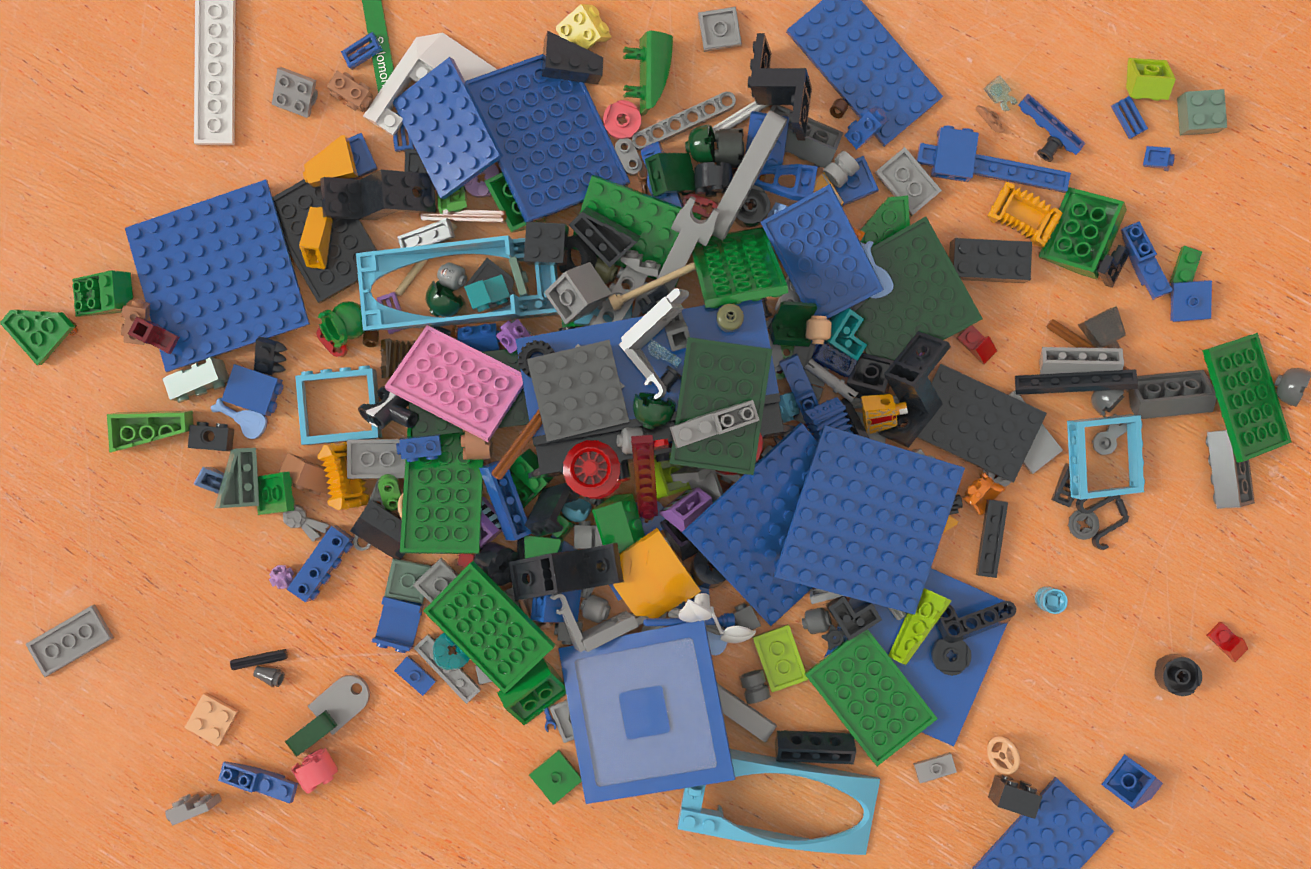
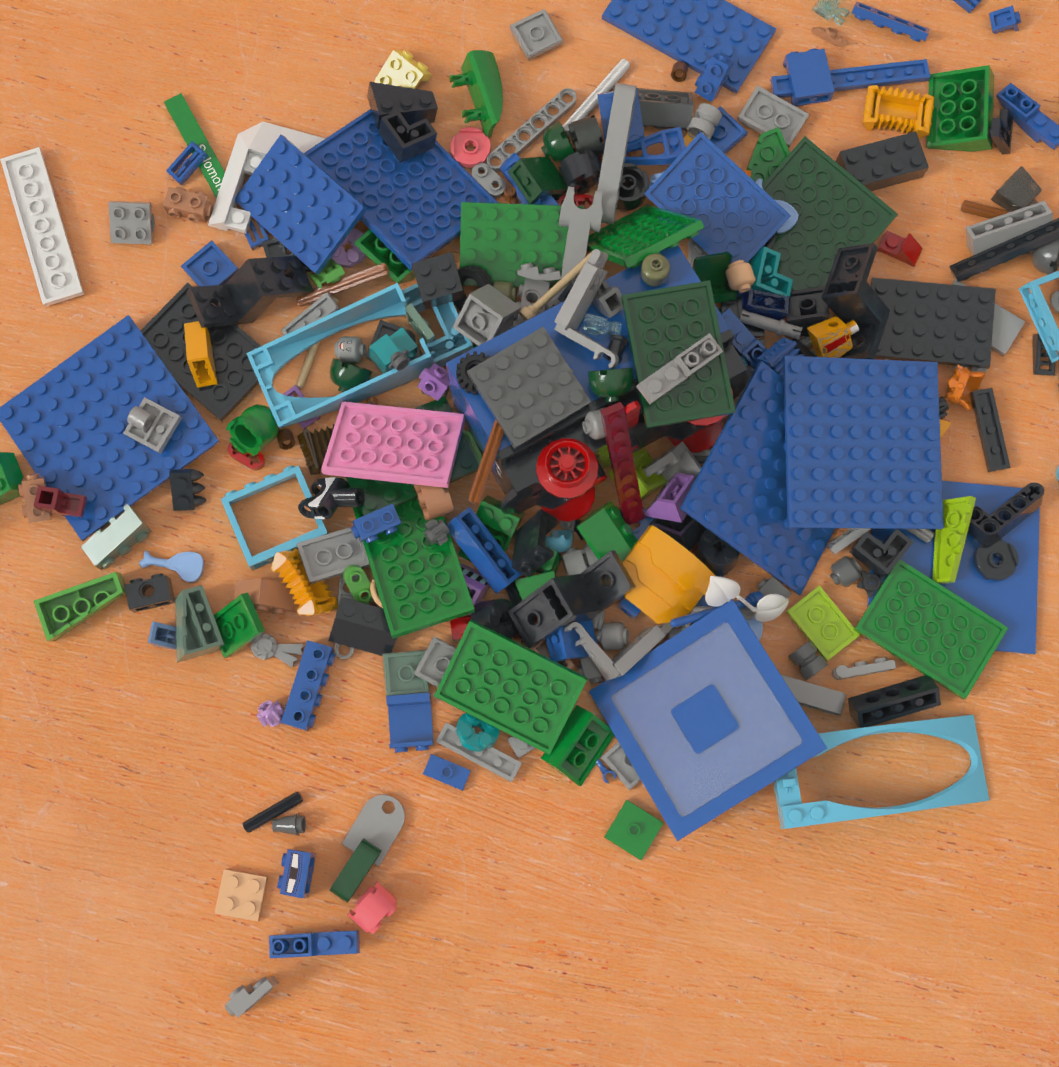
camera: 20 degrees left, 10 degrees down
(69, 640) = (59, 862): light grey tile -> none
(252, 390) = (179, 530): blue brick -> none
(253, 291) = (151, 425): none -> light grey plate
(262, 719) = (297, 873): none -> blue slope
(332, 162) = (192, 272): light orange slope -> none
(469, 472) = (436, 532): none -> dark grey gear
(480, 337) = (402, 396): blue brick -> none
(485, 309) = (399, 360): none -> dark grey plate
(561, 97) = (406, 140): none -> black brick
(603, 235) = (493, 255): black wedge -> none
(780, 86) = (616, 62): black bracket -> none
(800, 709) = (863, 668): none -> light grey plate
(935, 767) = (1024, 683): light grey plate -> none
(1050, 148) = (898, 43): black bush -> none

